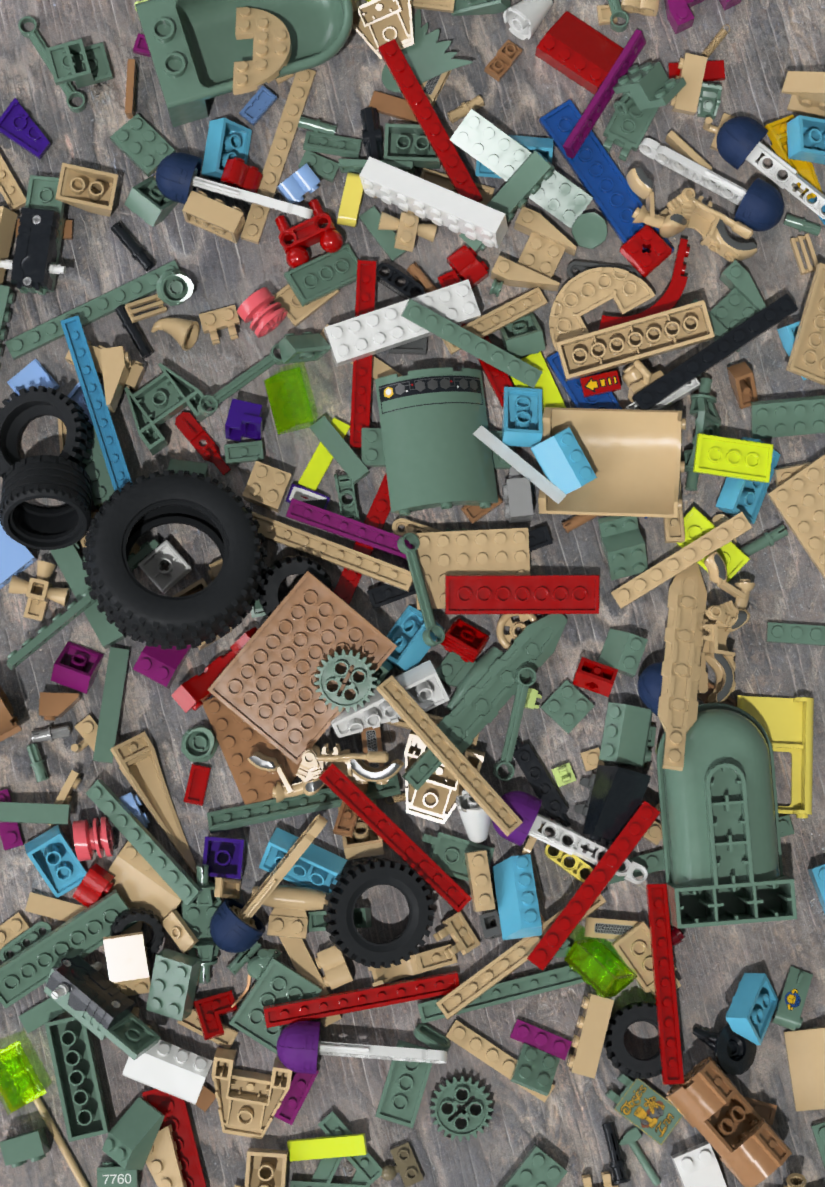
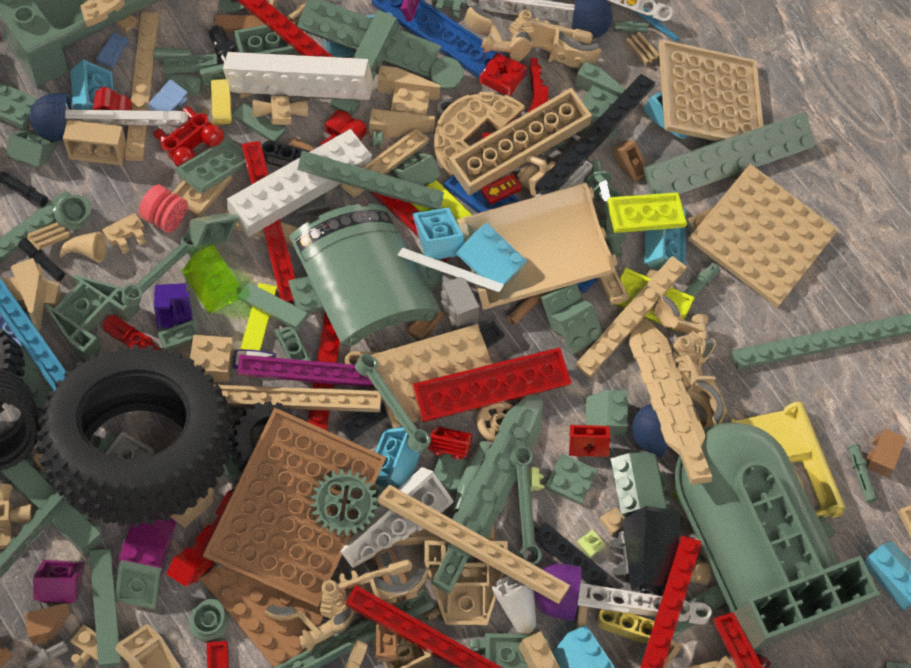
camera: 20 degrees left, 20 degrees down
(145, 694) = (138, 584): none -> sand green plate

